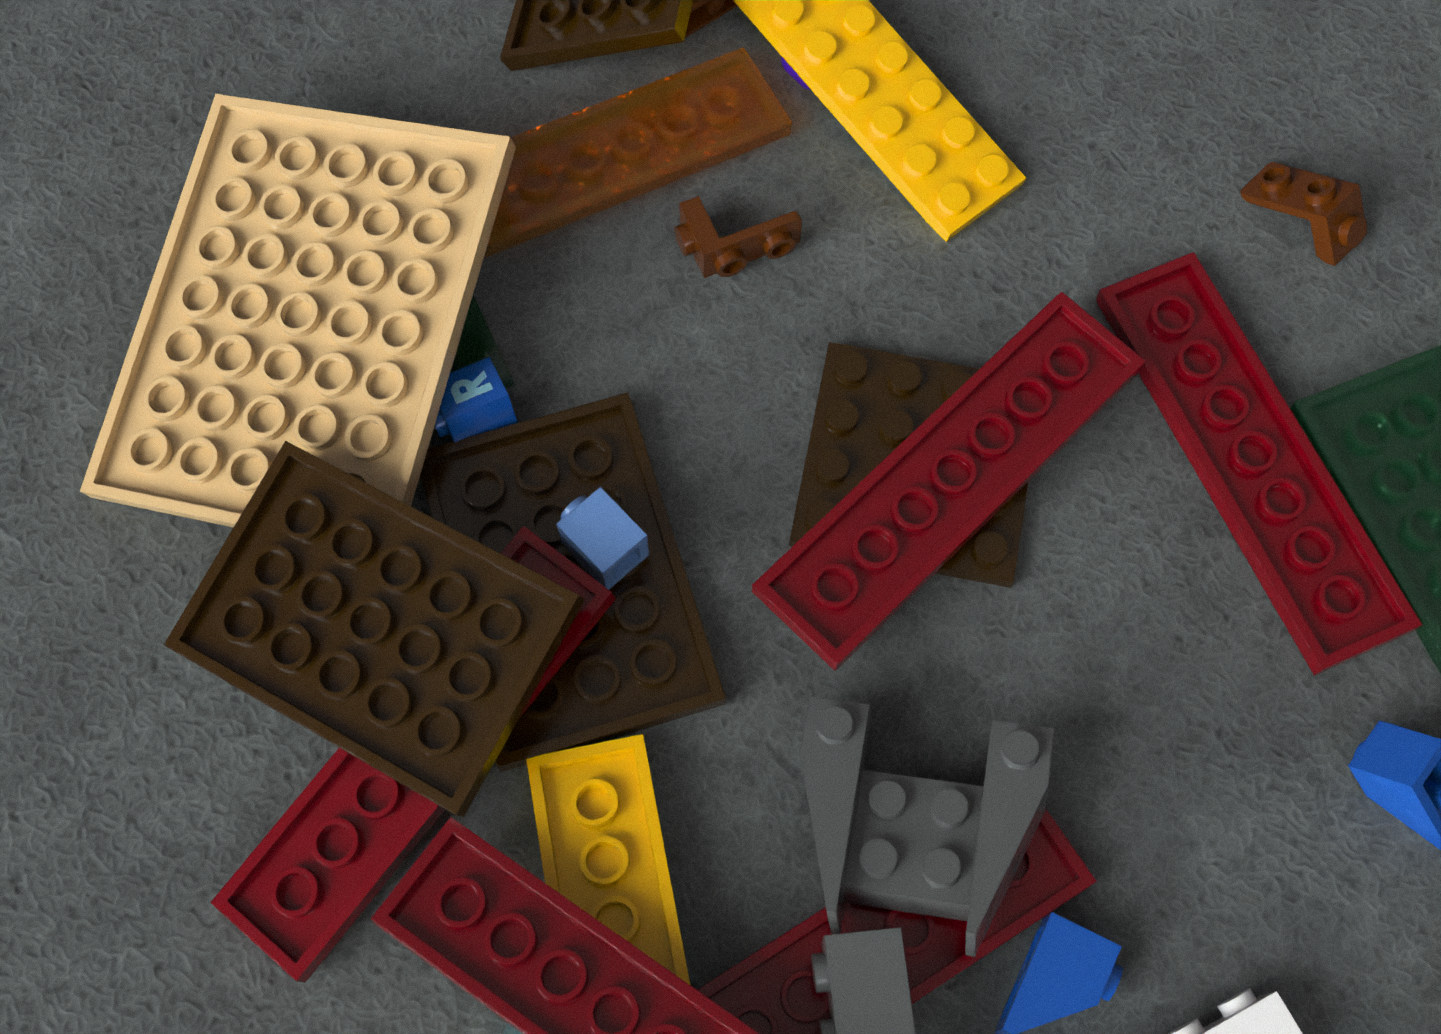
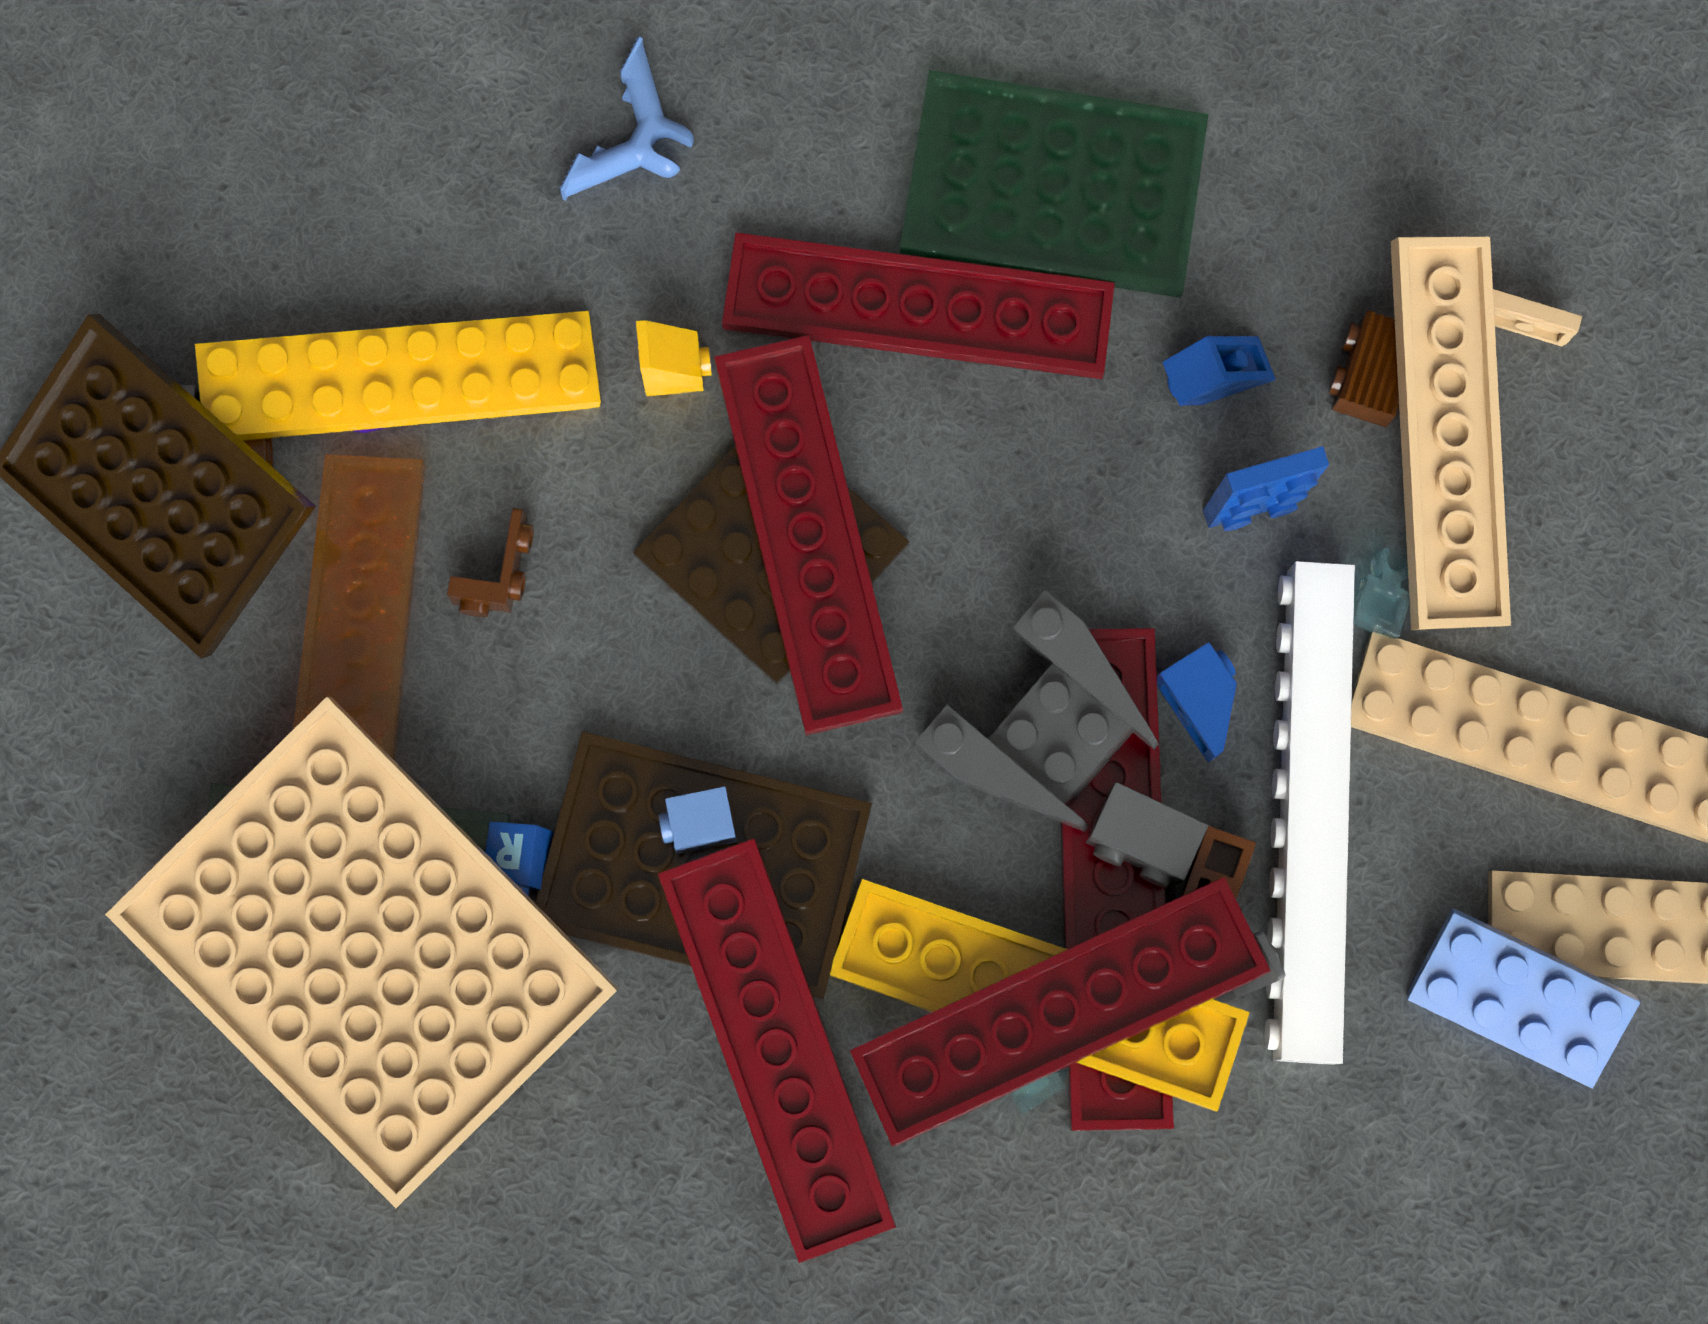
camera: 65 degrees left, 10 degrees up
(375, 627) = (668, 1029): dark brown plate -> none
(1030, 257) = (671, 359): none -> yellow slope
(1206, 135) = (638, 151): none -> medium blue piece
(1328, 203) = (749, 115): reddish brown bracket -> none
(1332, 902) = (1265, 487): none -> blue plate

